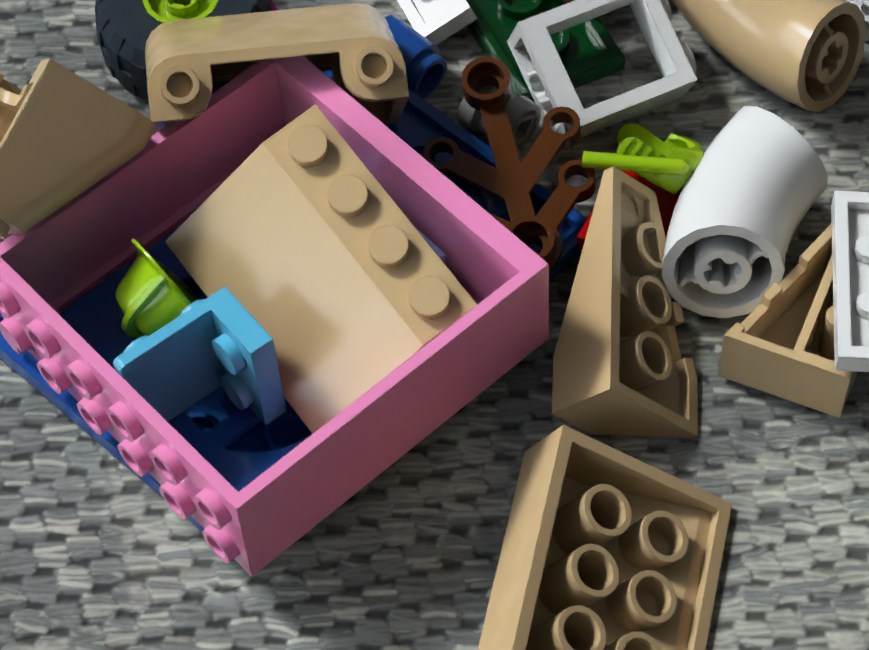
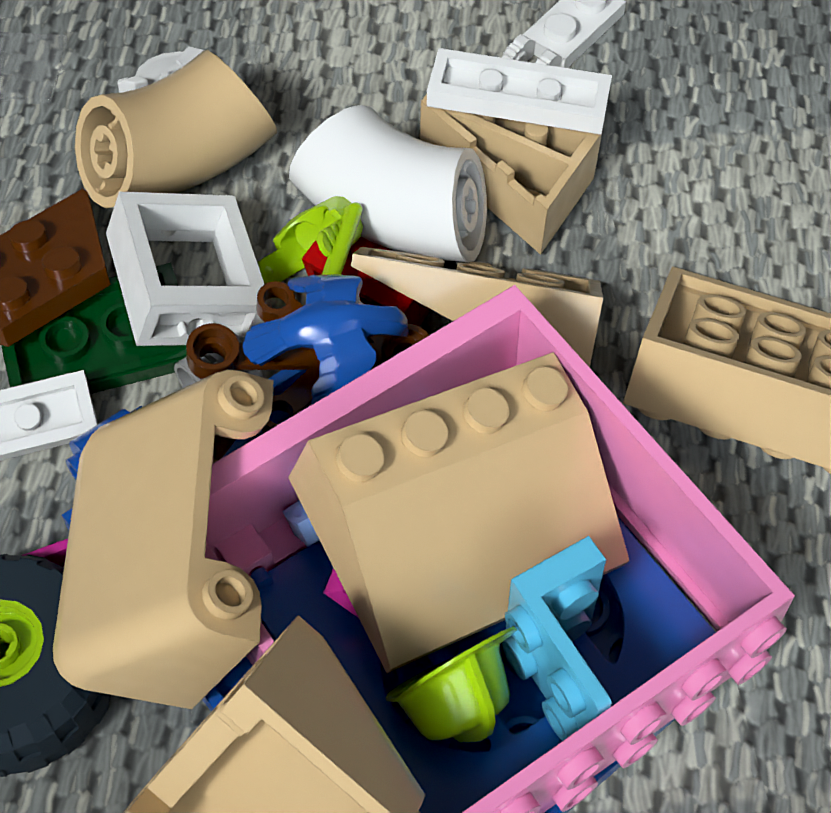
camera: 85 degrees left, 0 degrees up
(515, 157) = (331, 324): none -> blue animal

